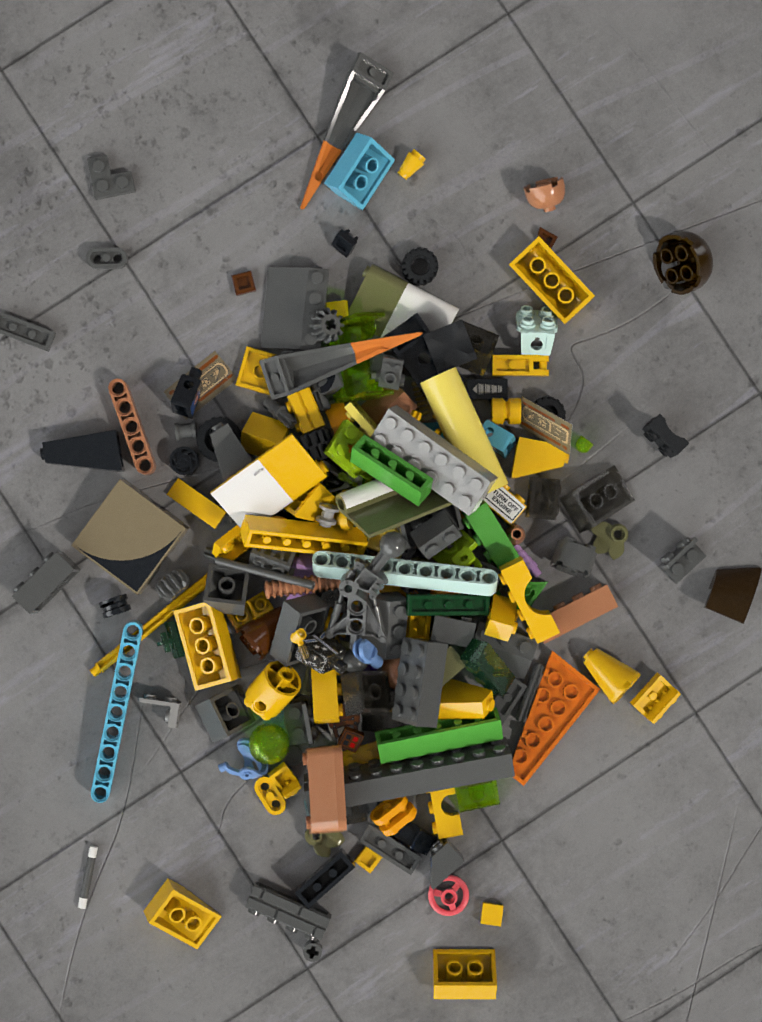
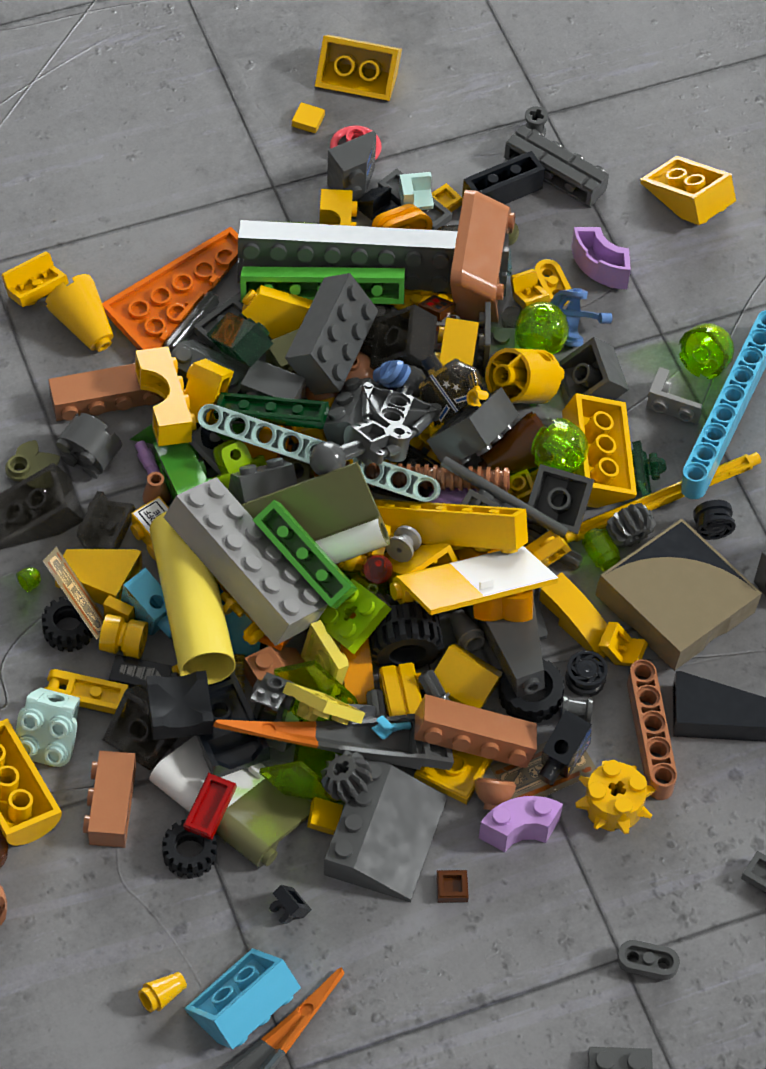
camera: 165 degrees left, 30 degrees down
(142, 757) = (706, 350): none -> clear neon green cylinder
(152, 379) = (615, 796): none -> yellow brick
(162, 486) = (620, 646): none -> yellow bracket
(191, 564) = (601, 548): none -> clear neon green brick
(208, 335) = (520, 820): none -> lavender brick
(229, 355) = (494, 791): none -> nougat brick
(230, 624) = (560, 446): none -> clear neon green cylinder
(237, 822) = (600, 258): none -> lavender brick
(249, 387) = (475, 731): none -> nougat brick
(310, 371) = (385, 728): none -> medium azure hand
(340, 487) = (377, 568): none -> clear red tile
(353, 373) = (320, 704): none -> light yellow hinge
(389, 849) = (416, 190): none -> light aqua panel
(412, 290) = (210, 806): none -> red tile
(480, 288) = (110, 799): none -> nougat brick
(515, 430) = (119, 608): none -> yellow tile

